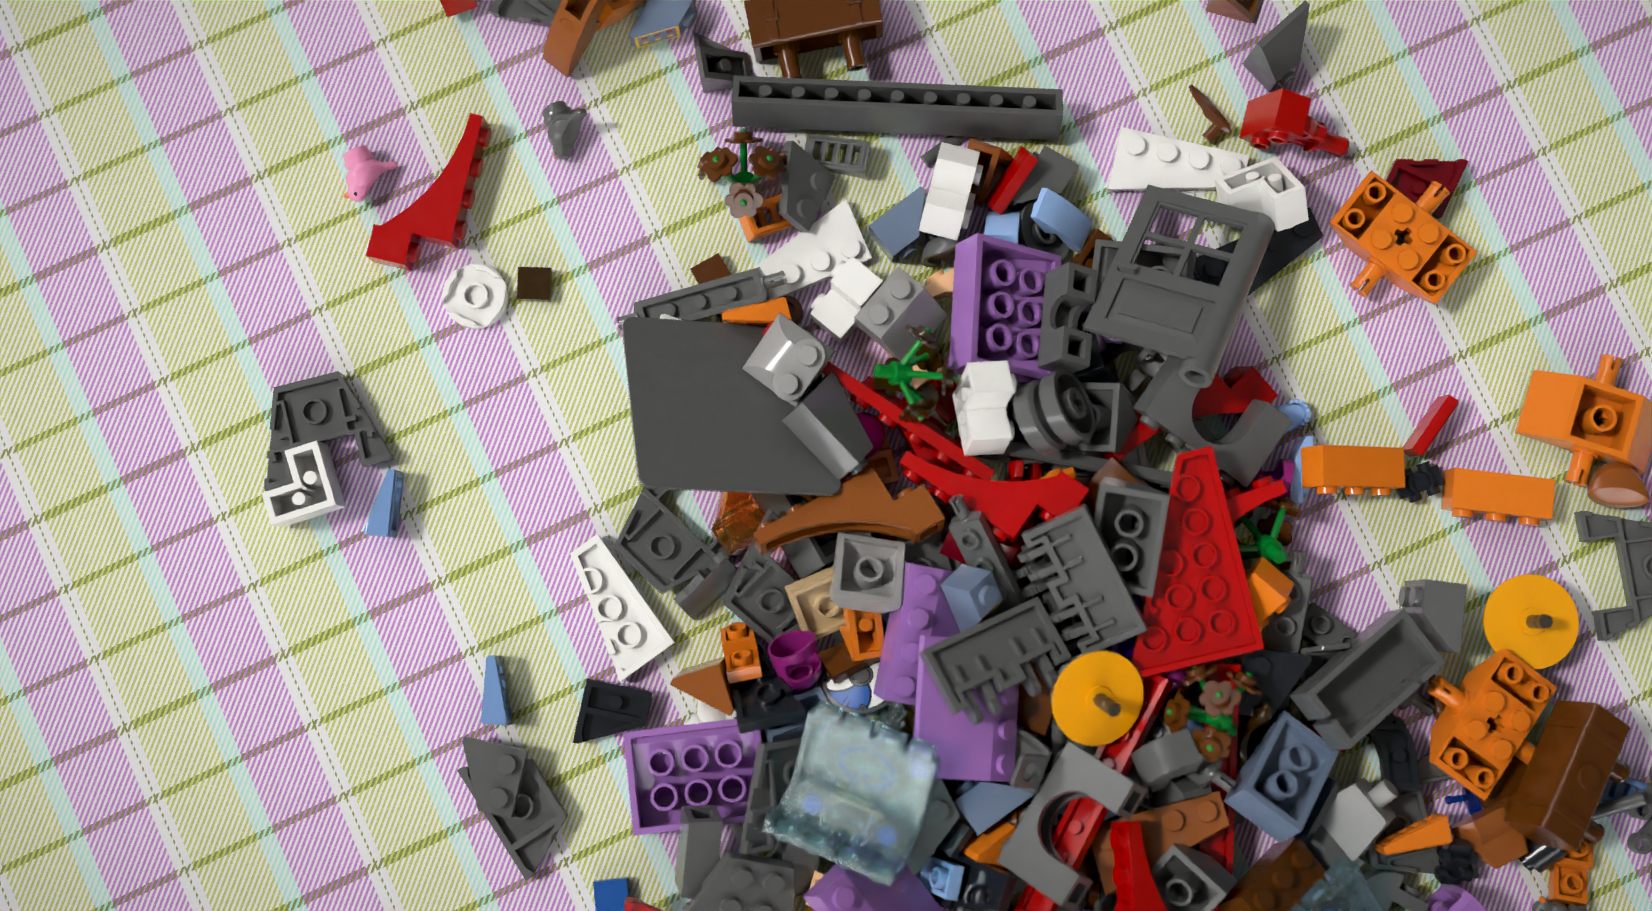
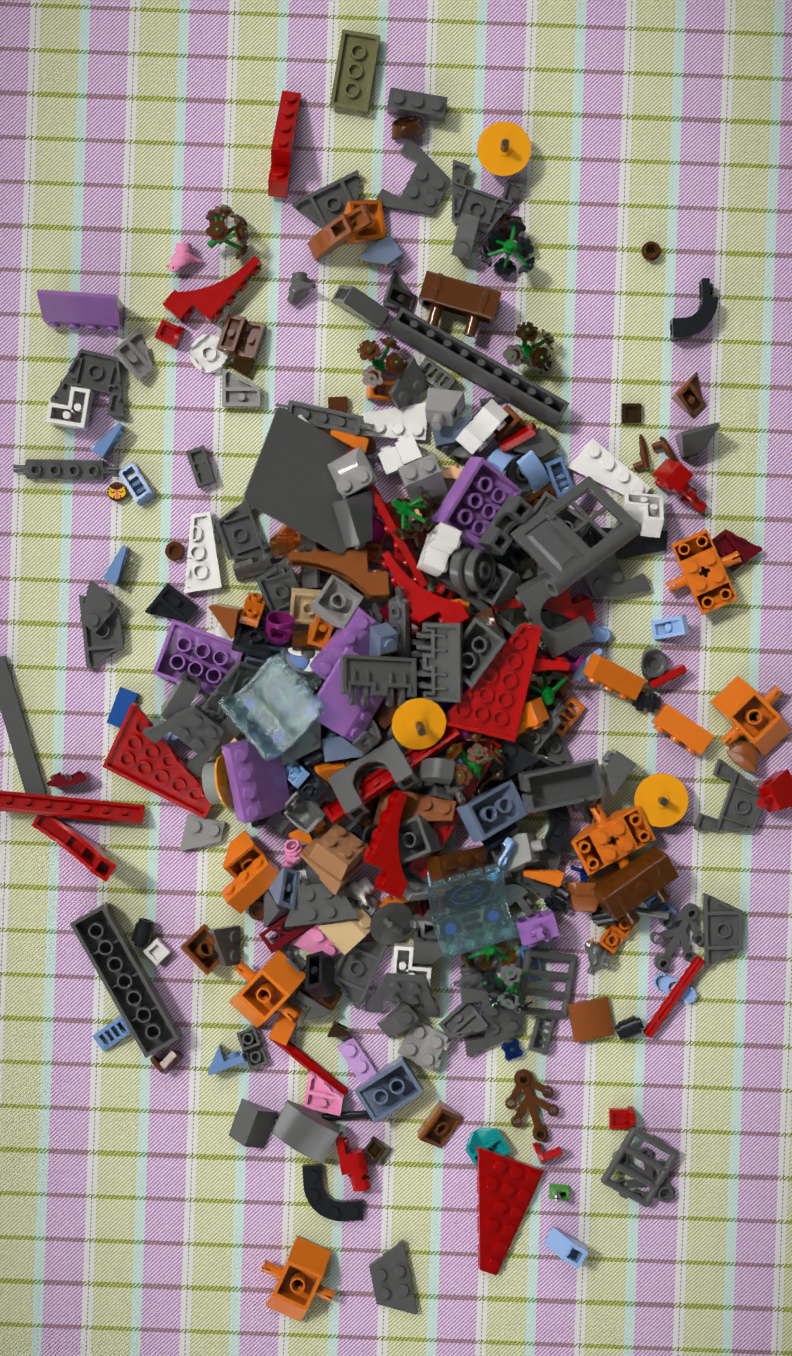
camera: 20 degrees right, 5 degrees up
(243, 325) = (81, 309): none -> medium lavender slope
(340, 584) = (66, 469): none -> dark grey plate
(362, 355) = (134, 355): none -> light grey wing
(395, 99) = (219, 232): none -> reddish brown plant
(401, 296) = (170, 333): none -> red tile
(438, 577) = (117, 491): none -> tile
(480, 561) = (146, 496): none -> medium blue slope
(513, 246) = (241, 337): none -> reddish brown slope
(549, 473) = (201, 466): none -> dark grey plate
(550, 329) = (239, 392): none -> light grey wing
(573, 623) = (175, 551): none -> reddish brown tile
(669, 106) = (360, 305): none -> dark grey slope
(875, 192) = (443, 407): none -> light grey torso
(947, 52) = (517, 353): none -> dark brown plant
(1109, 201) = (558, 459): none -> medium blue slope
(1158, 62) = (631, 413): none -> dark brown tile
(1240, 85) = (667, 449): none -> reddish brown bar
(1264, 321) = (609, 579): none -> dark grey wing
(1321, 568) = (561, 732): none -> orange slope
(1340, 816) = (510, 846): none -> light blue piece
(1394, 348) = (670, 627): none -> light blue slope
(1398, 416) = (653, 663): none -> dark grey piece

